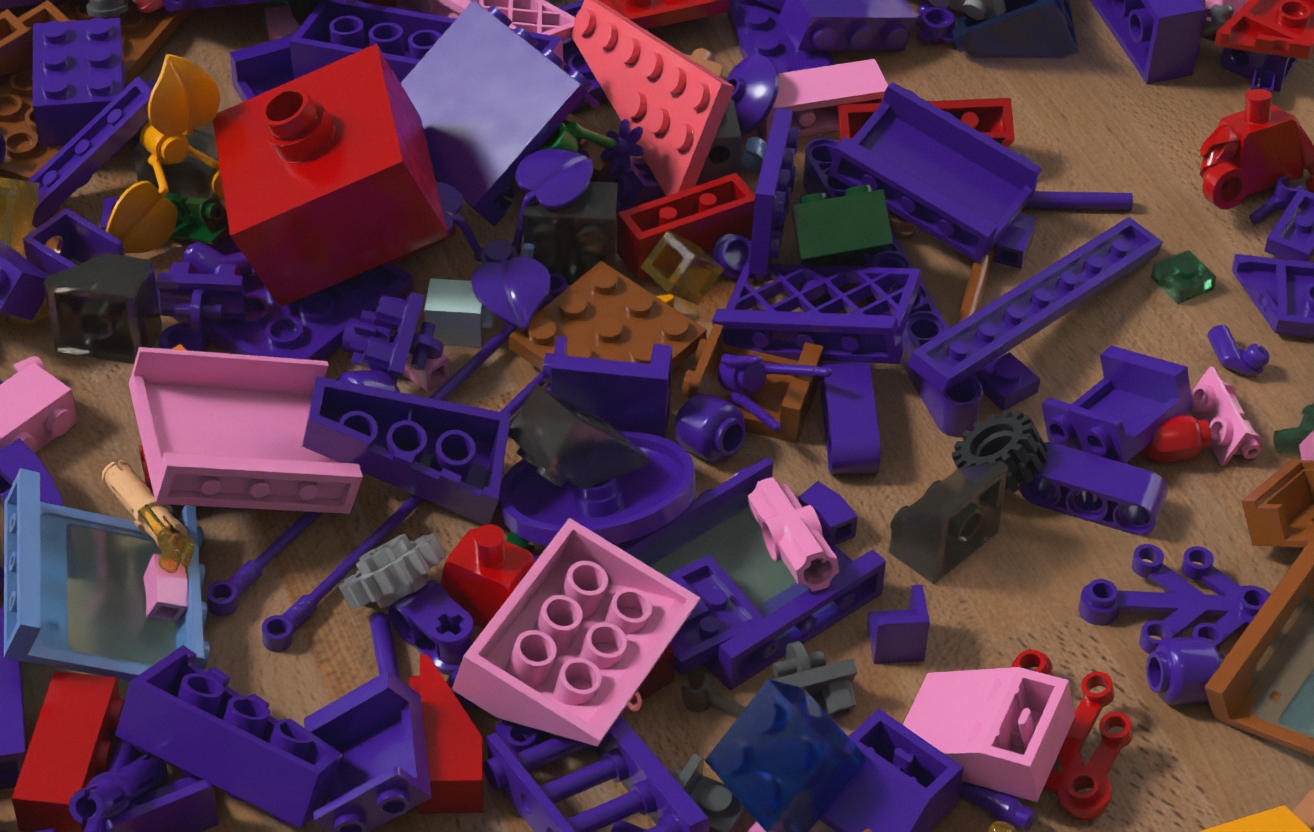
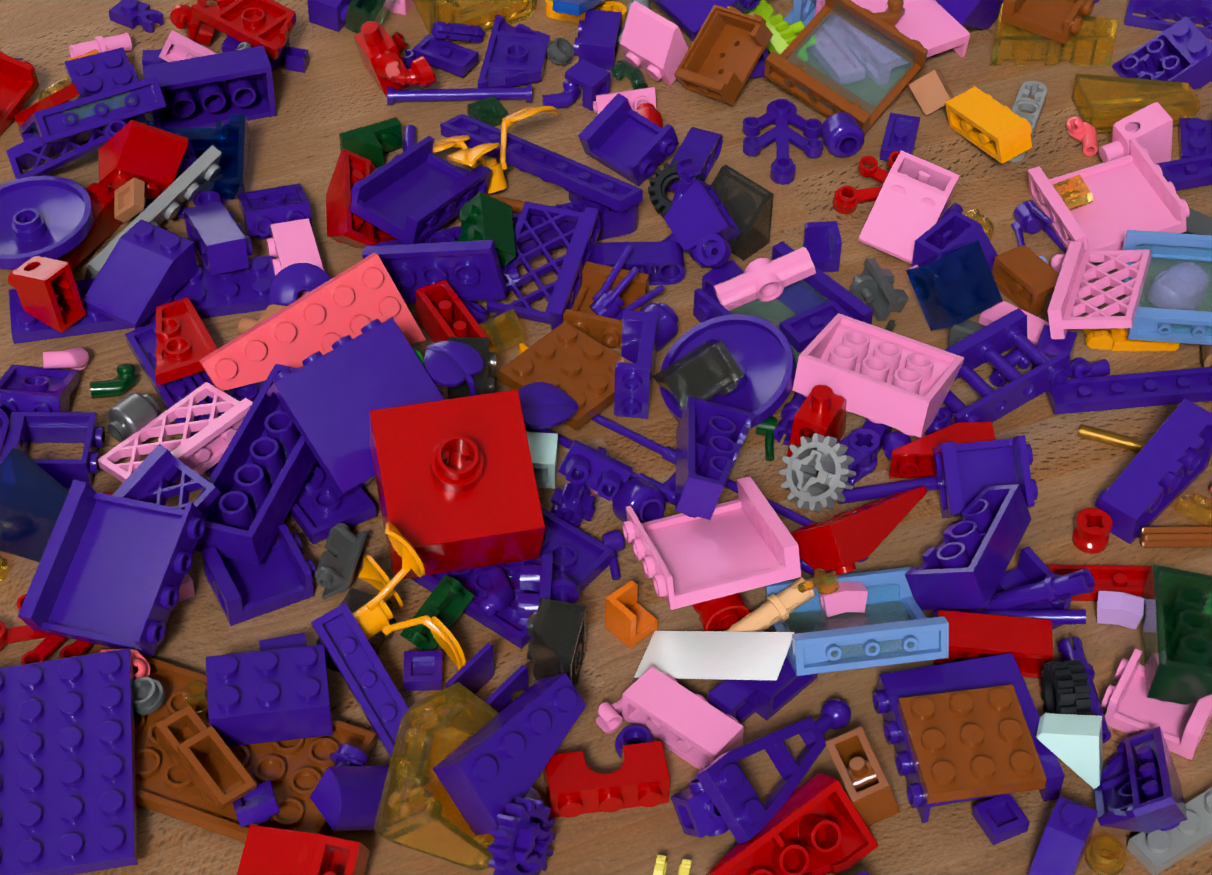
camera: 90 degrees left, 0 degrees up
(85, 456) = (717, 654): none -> white sticker
(266, 584) = (854, 533): none -> red wedge
(908, 466) = (700, 219): none -> dark purple torso
(926, 67) = (271, 207): none -> dark purple plate
(1023, 260) = (469, 156): none -> light orange plant
(1080, 154) = (373, 140): none -> dark green slope
(1204, 756) = (900, 135): none -> dark purple plate
(1235, 313) = (466, 94): none -> dark purple bar
(1261, 371) = (592, 80): none -> dark purple panel

